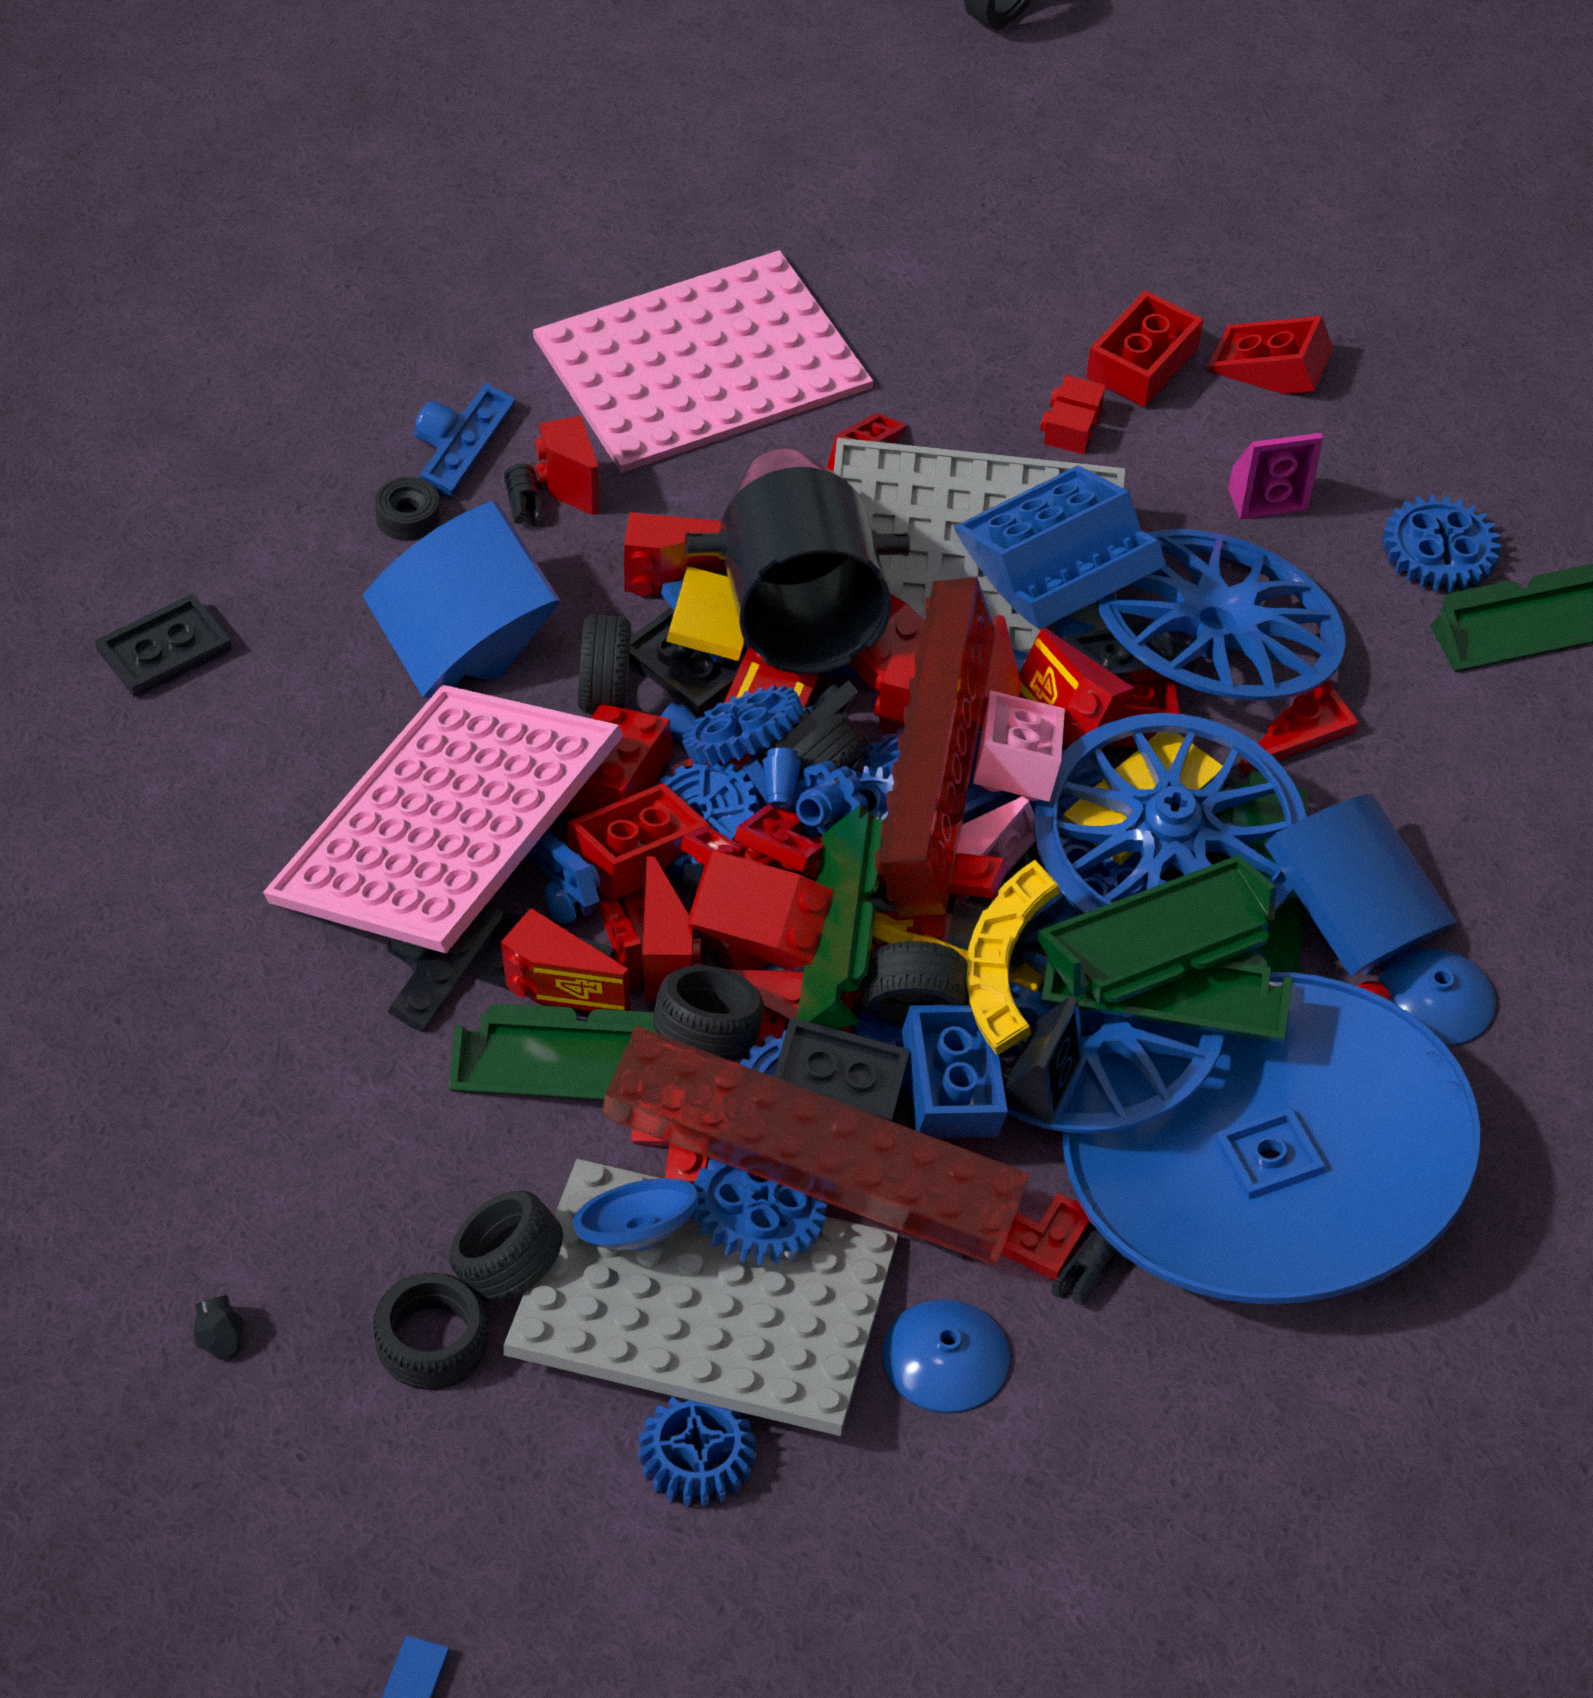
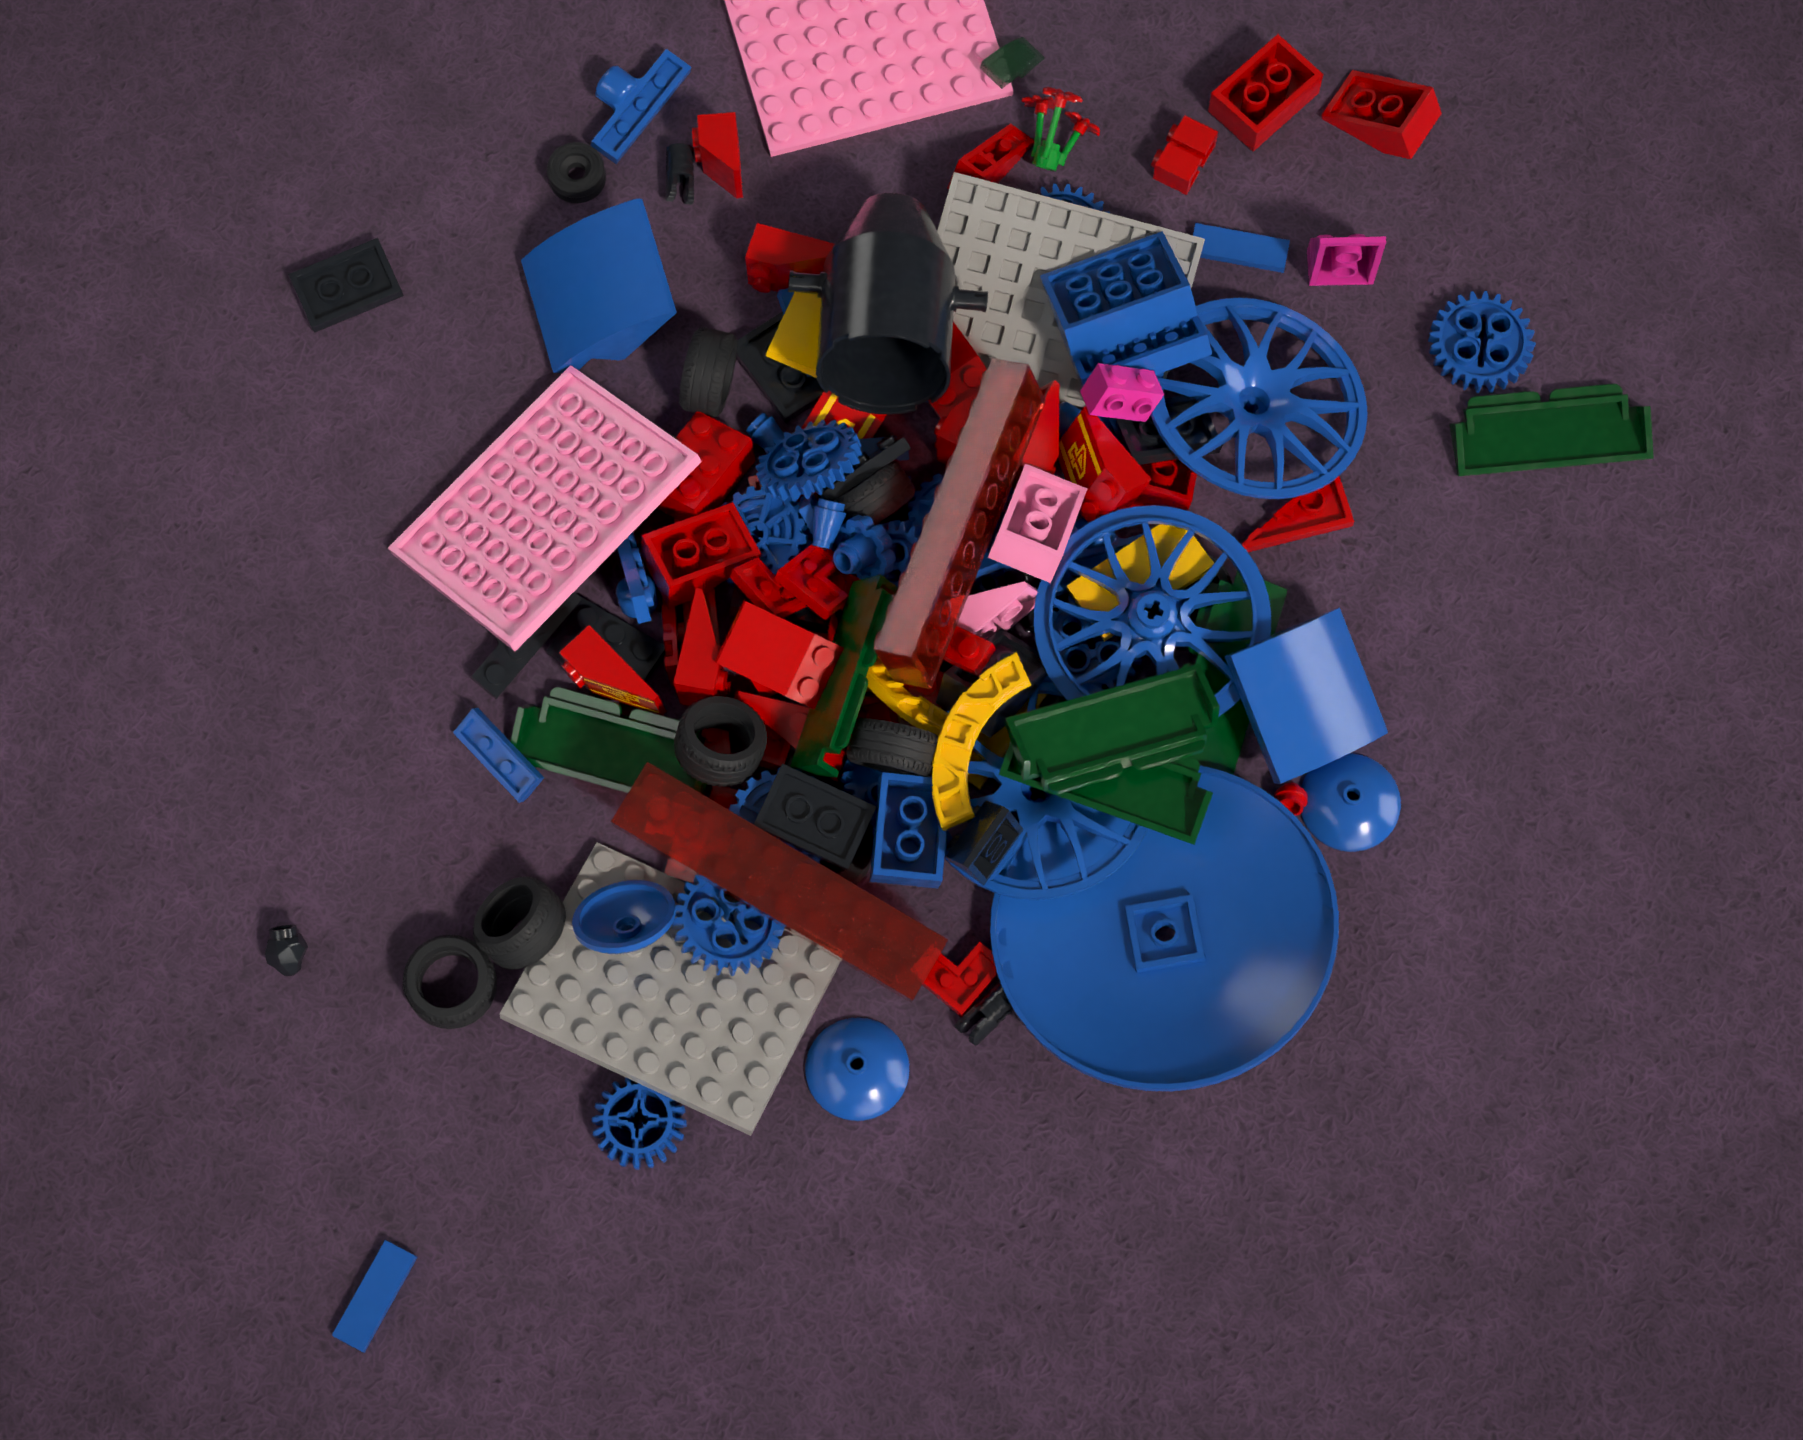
camera: 15 degrees right, 20 degrees up
(438, 1085) = (498, 755): none -> blue tile
(863, 355) = (1011, 61): none -> clear green slope
(927, 430) = (1047, 154): none -> plant
(1079, 610) = (1121, 392): none -> dark pink brick
(1168, 493) = (1242, 248): none -> blue tile

